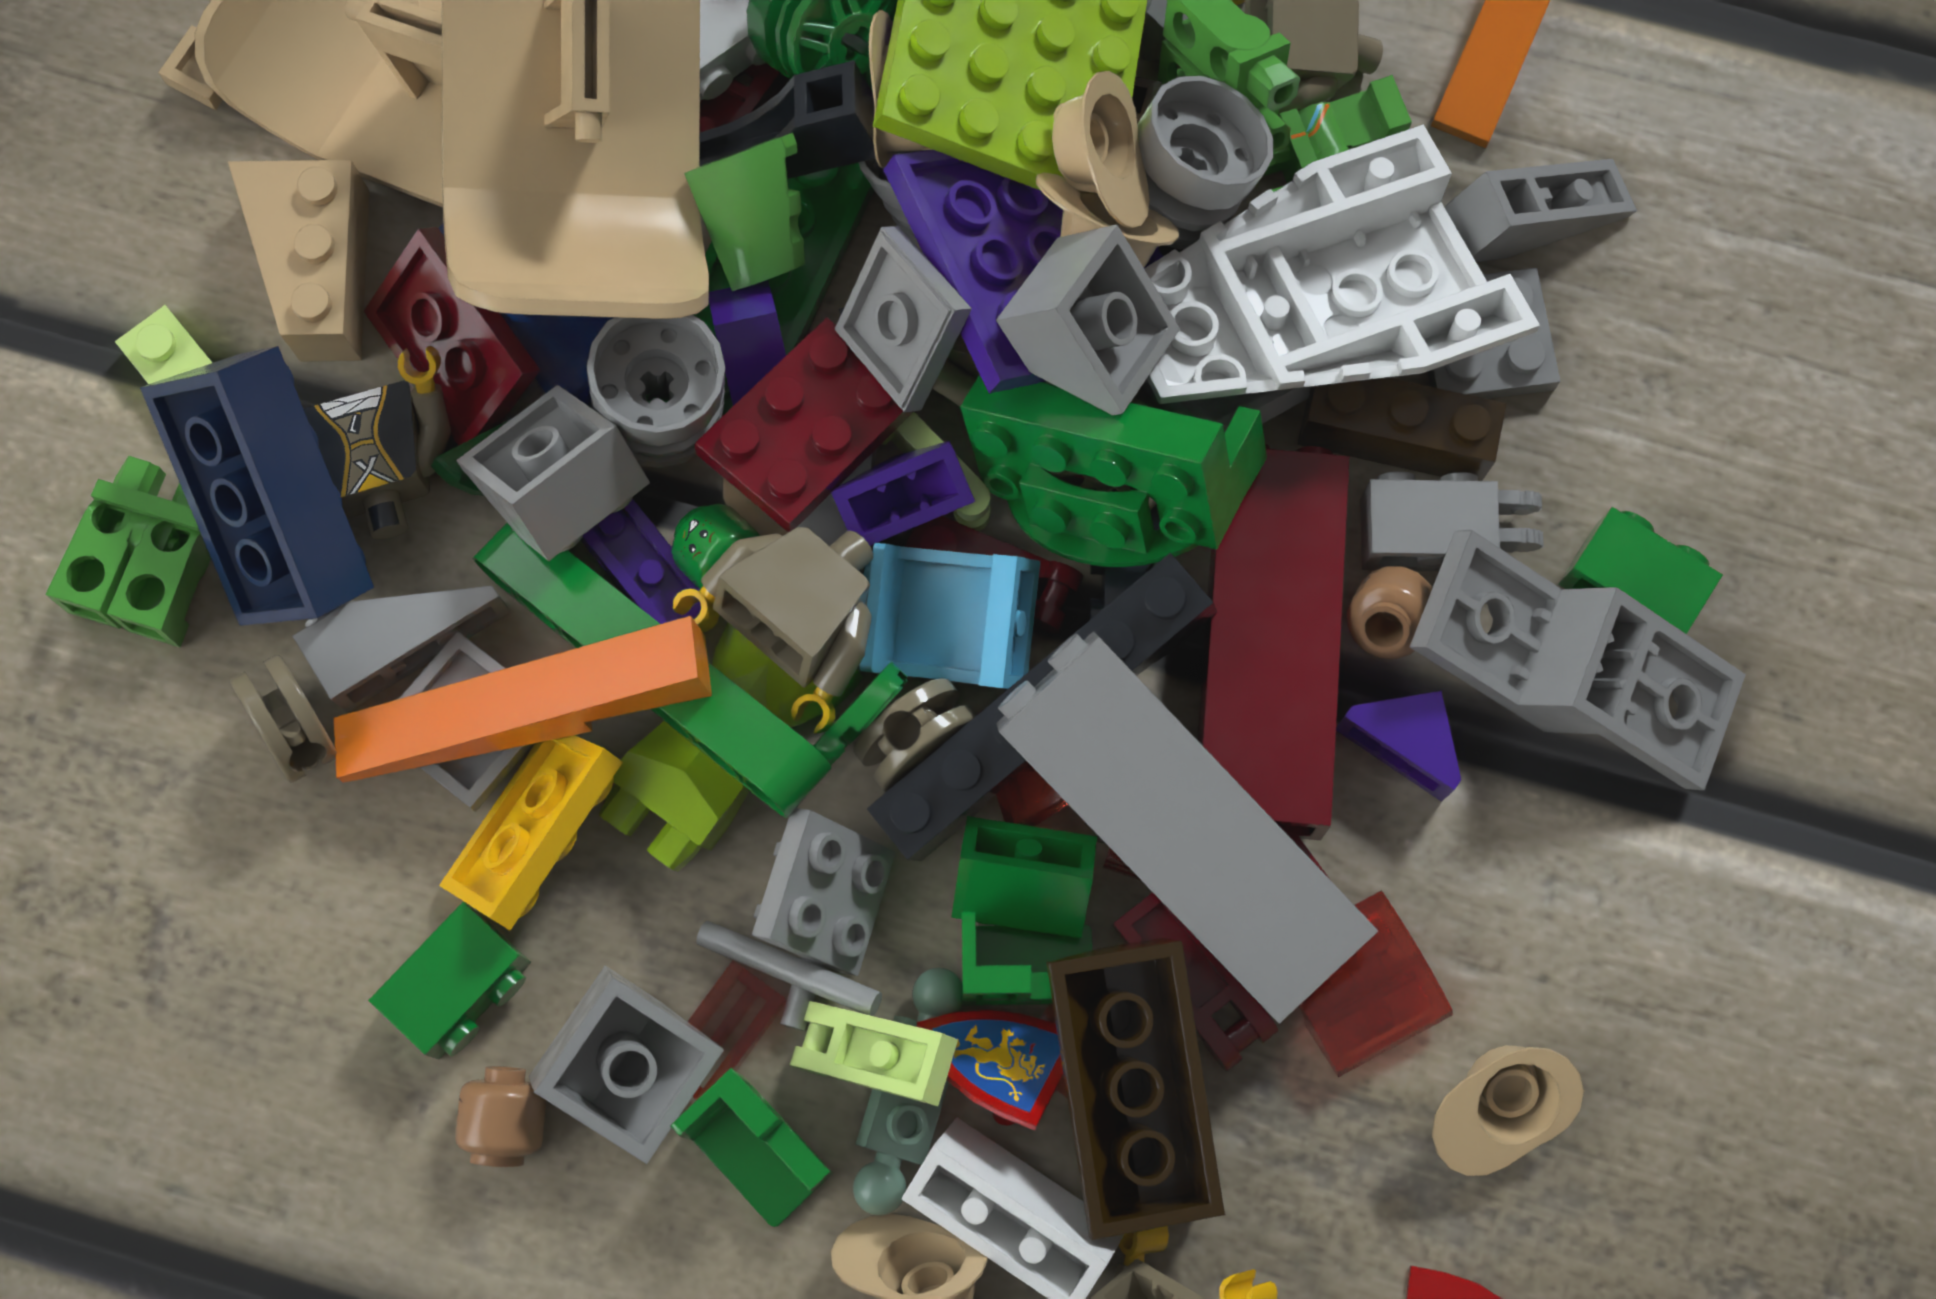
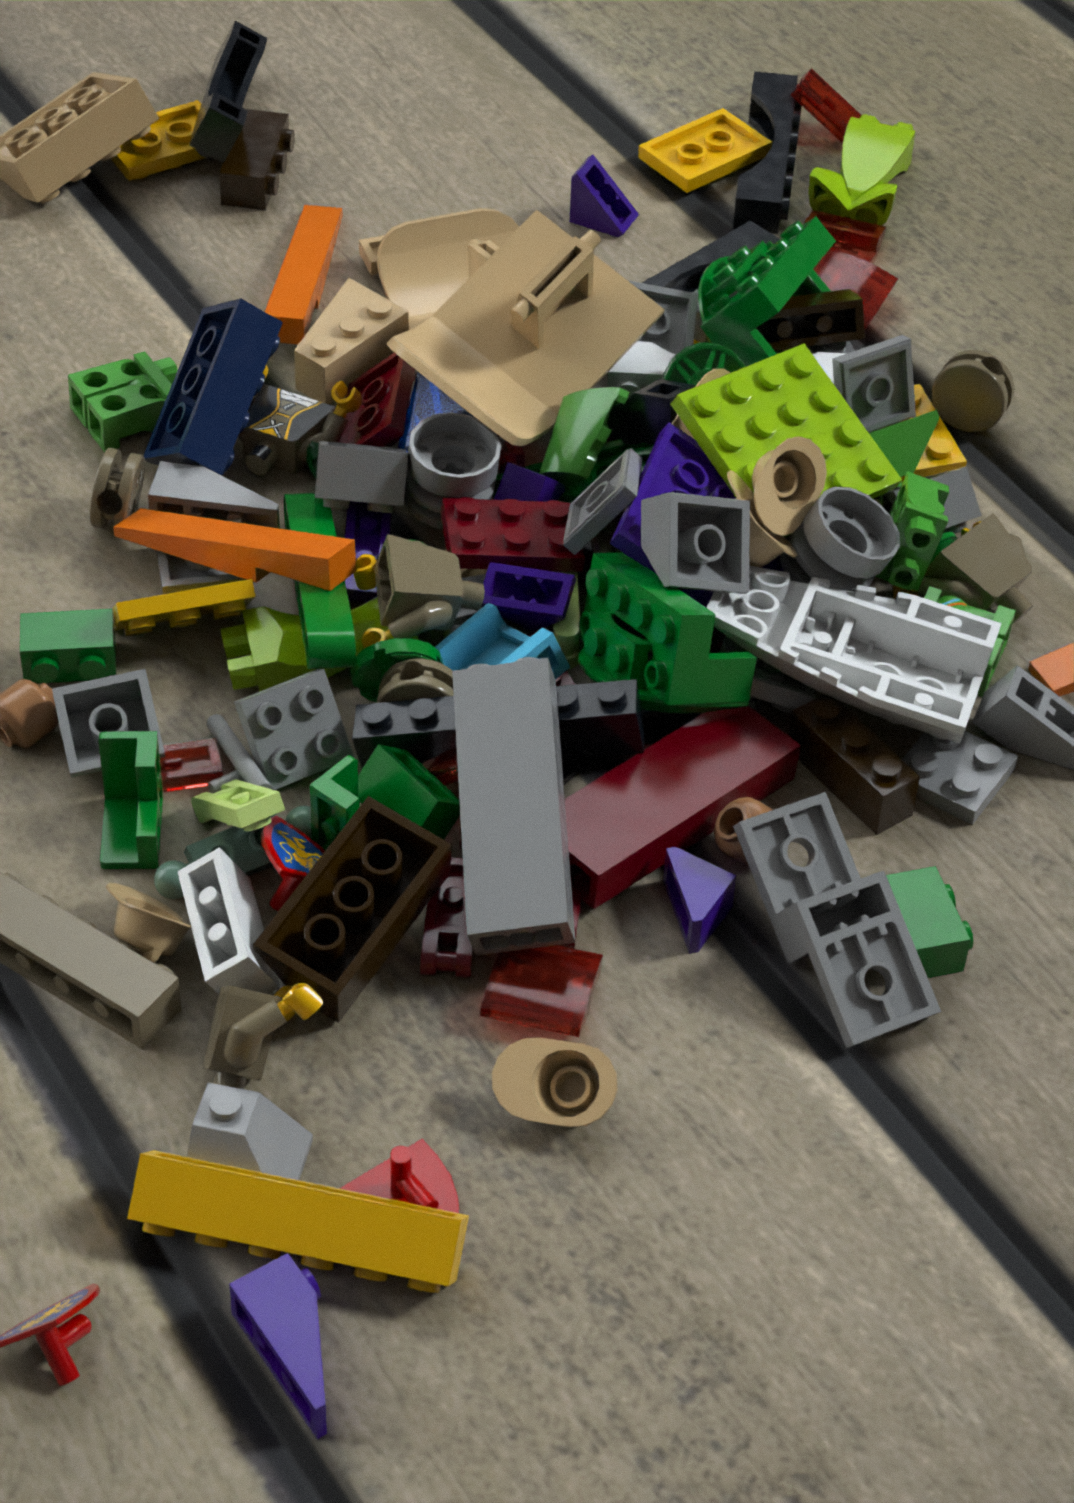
camera: 40 degrees right, 30 degrees down
(139, 177) = (304, 271): none -> orange slope
(1415, 520) = (855, 817): light grey hinge -> none

